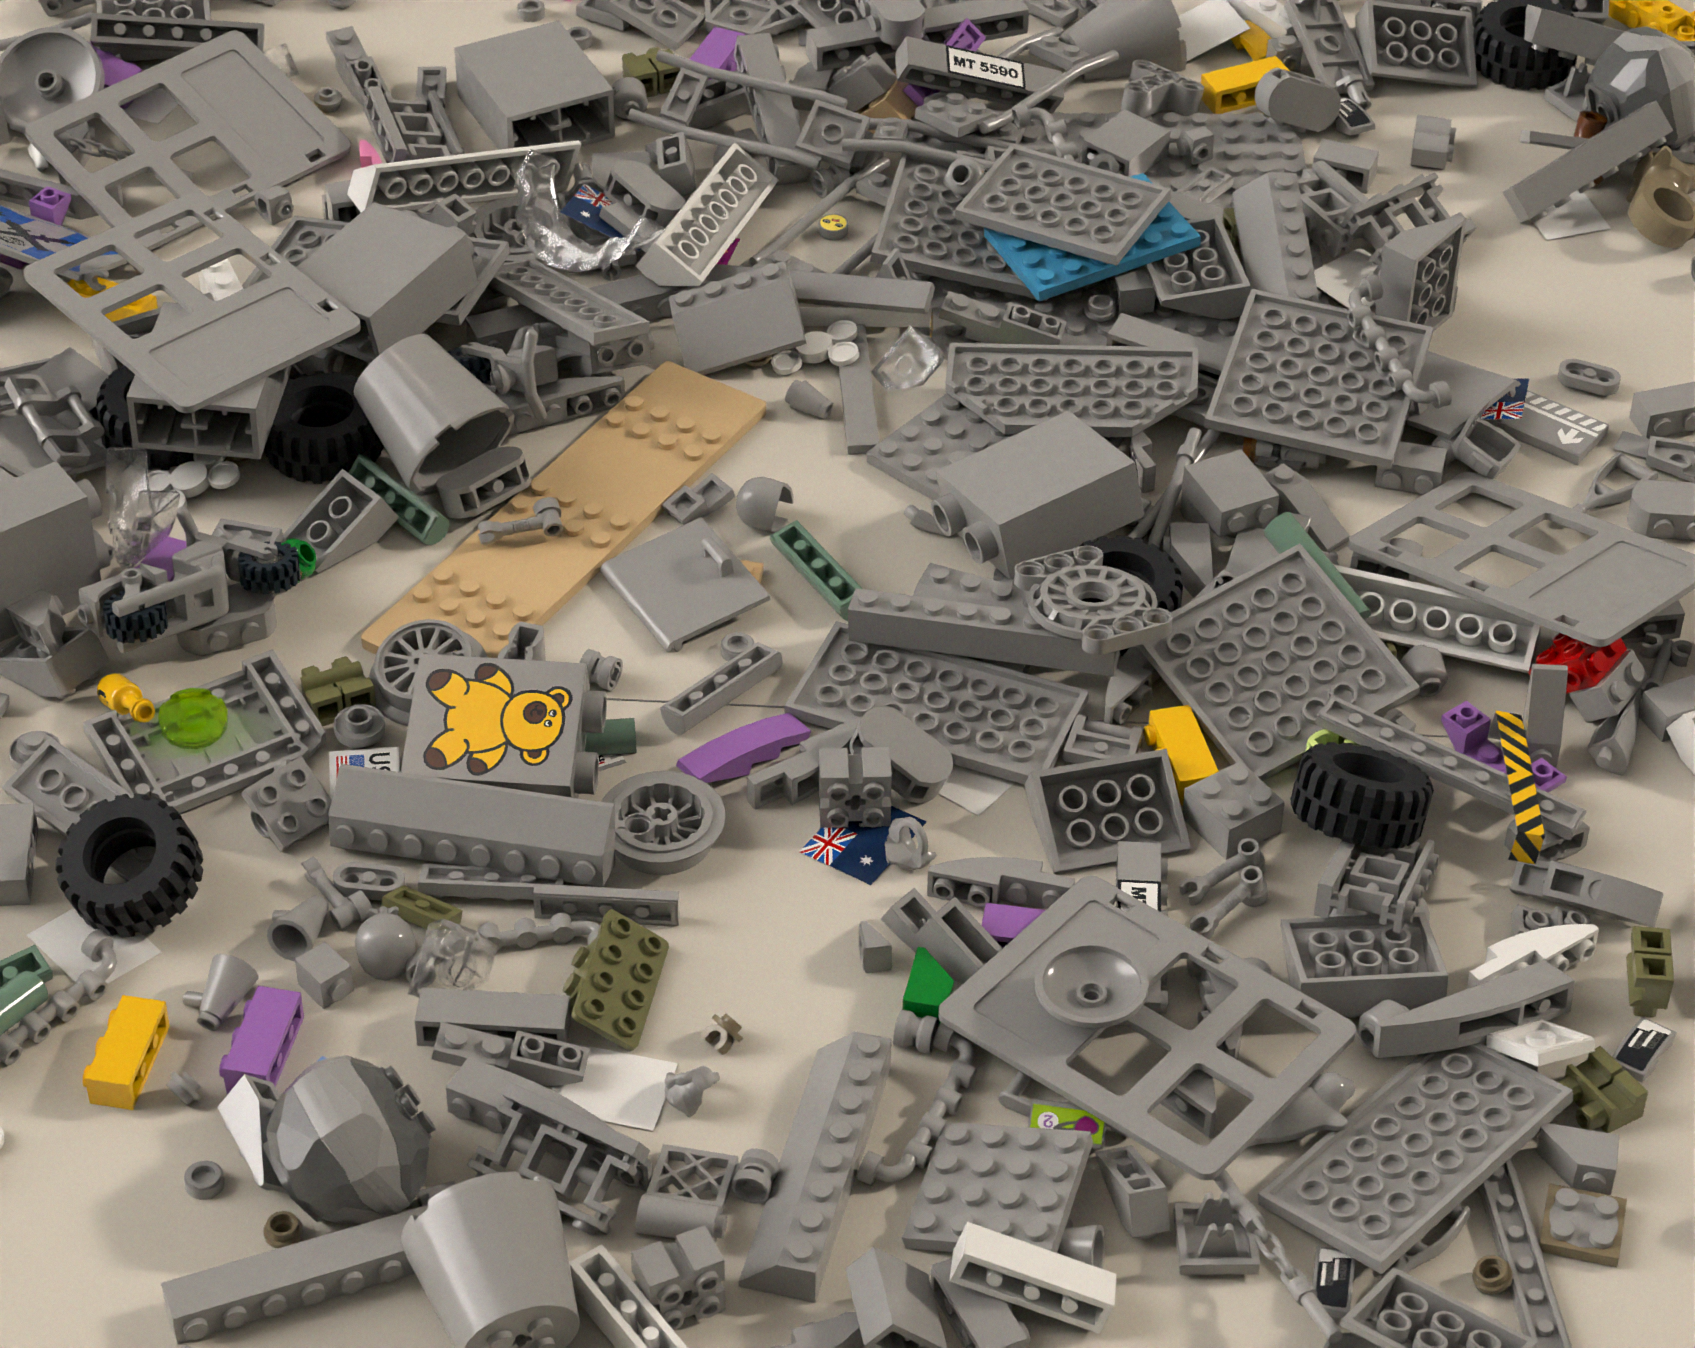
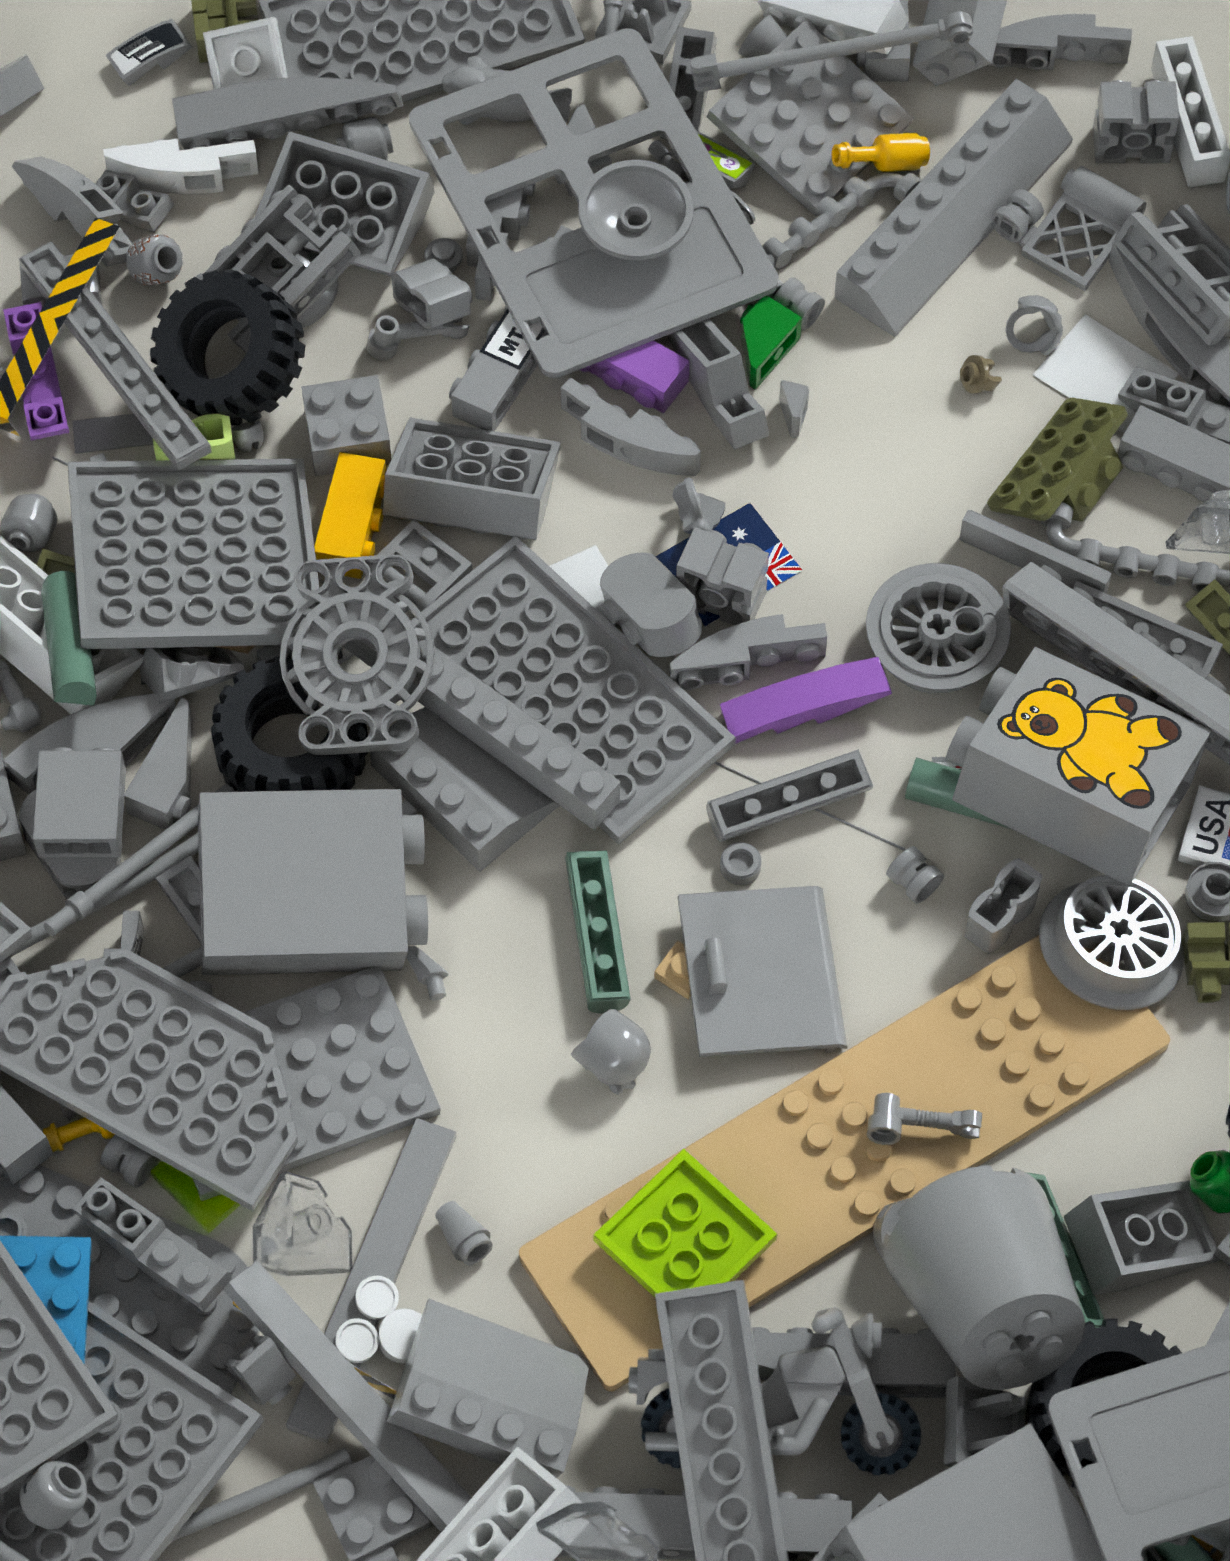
camera: 155 degrees left, 20 degrees up
(655, 420) = (684, 1230): none -> lime plate
(700, 501) = (680, 1118): light grey slope -> none
(892, 1245) = (955, 27): none -> light grey hinge
(905, 1182) = (888, 152): none -> yellow piece
(1235, 919) = (431, 293): none -> light grey brick
(1247, 855) = (371, 363): light grey brick -> none
(1485, 870) = (154, 260): none -> light grey head
(1650, 970) = (93, 88): olive hips -> none

